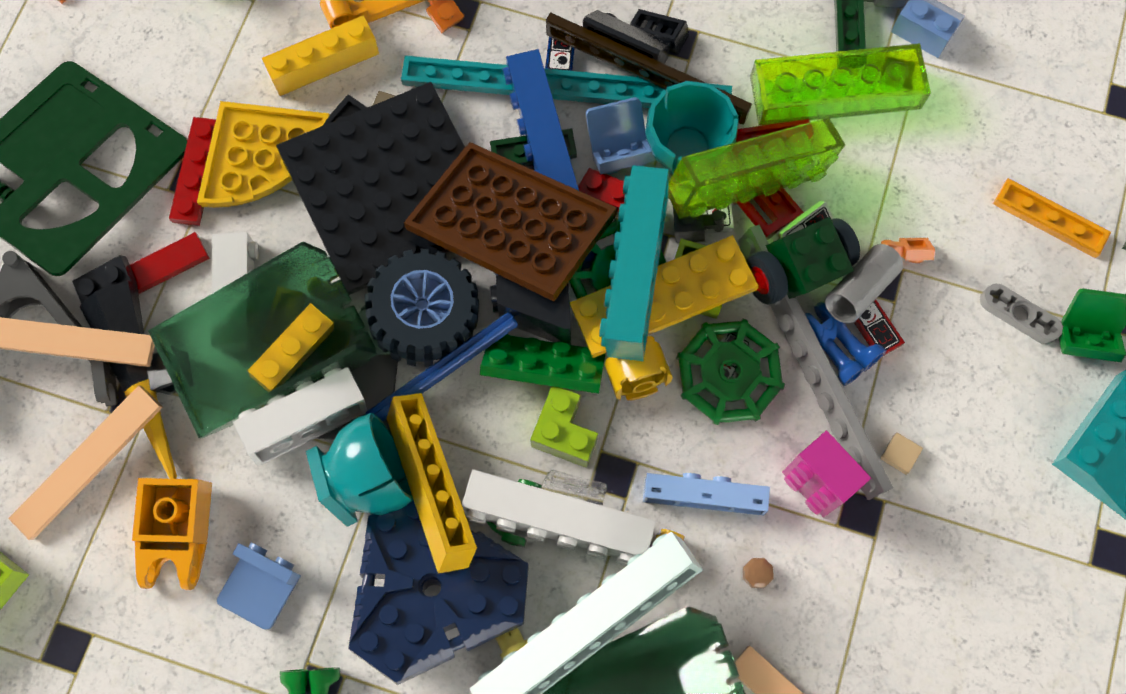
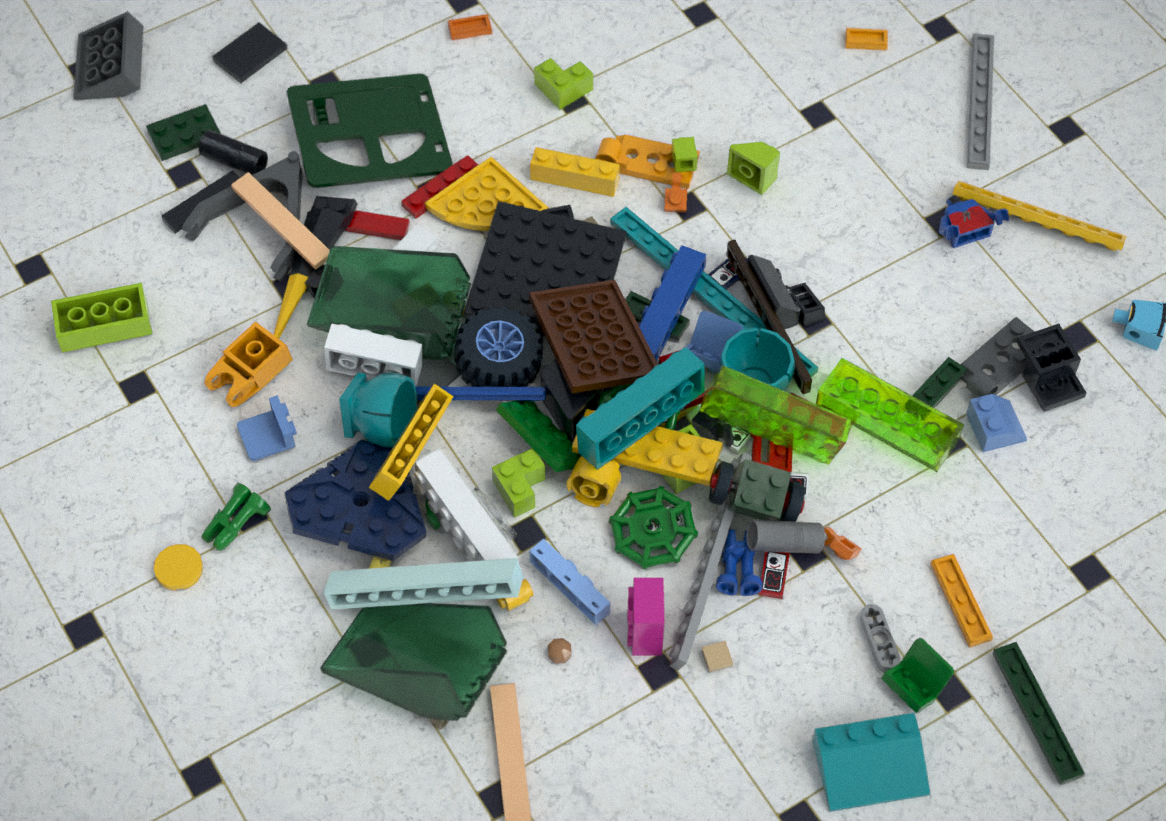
camera: 40 degrees right, 15 degrees down
(85, 463) = (235, 296): light nougat tile -> none
(291, 348) = (409, 313): yellow brick -> none

